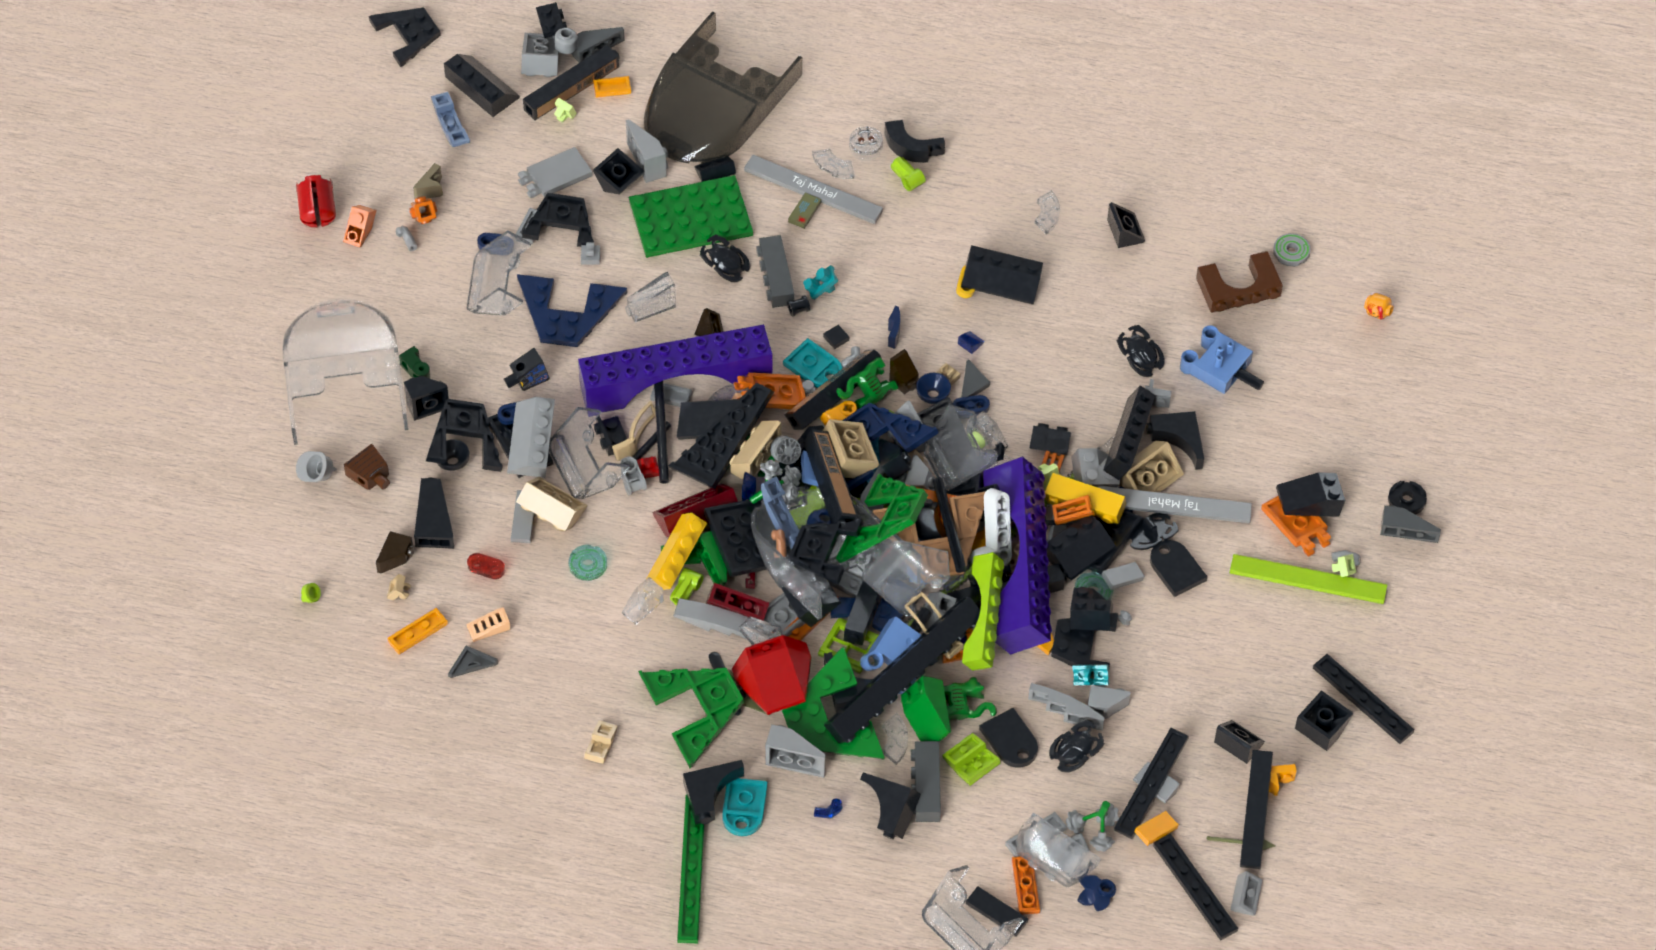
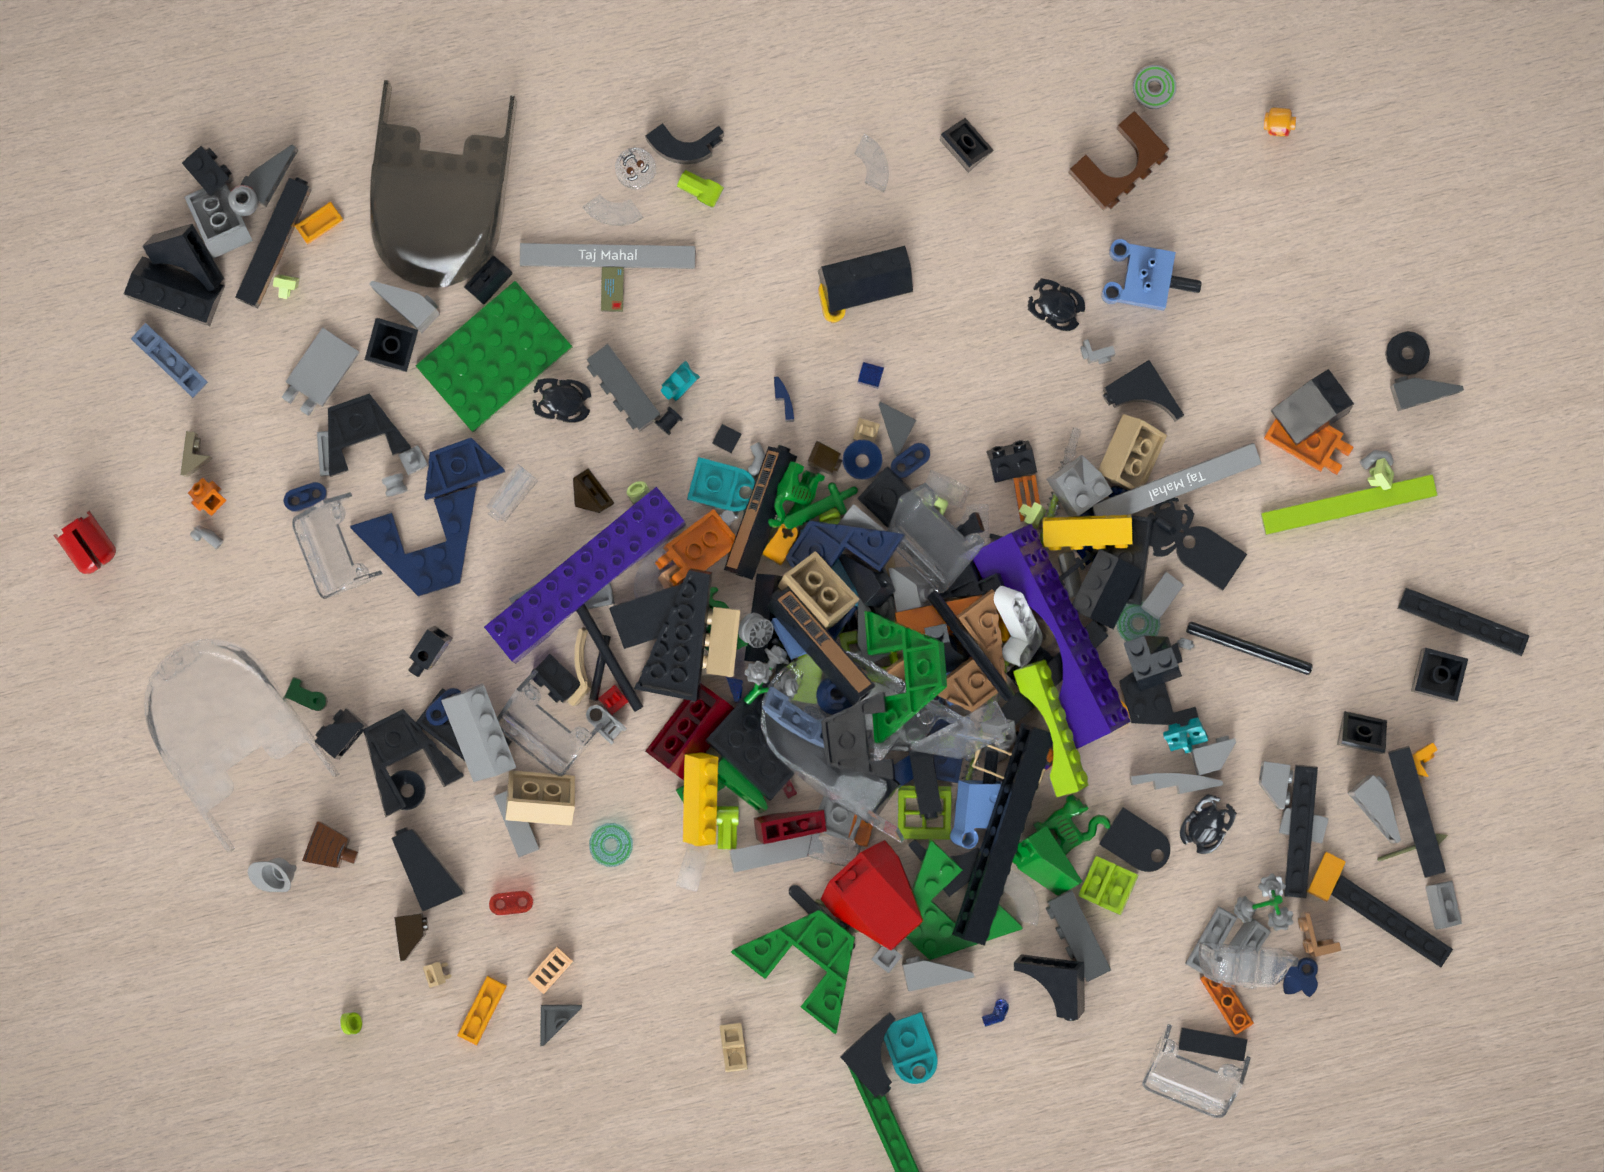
camera: 25 degrees left, 30 degrees up
(359, 225) = (147, 546): orange slope -> none
(414, 27) = (58, 248): black wing -> none
(506, 55) = (186, 250): none -> black arch
(566, 261) = (394, 485): none -> light grey wheel
(620, 270) = (458, 467): none -> dark blue wing
(760, 727) = (886, 958): none -> light grey tile
(779, 536) = (803, 743): nougat arm -> none
(879, 402) = (834, 500): none -> green sword
(1075, 510) = (1098, 547): orange tile -> none
(1125, 871) = (1310, 945): none -> medium nougat bracket
(1129, 433) = (1096, 426): black brick -> none
(1148, 740) = (1274, 781): none -> light grey slope
(1175, 642) = (1249, 648): none -> black axle
(1221, 782) = (1376, 804): none -> light grey slope

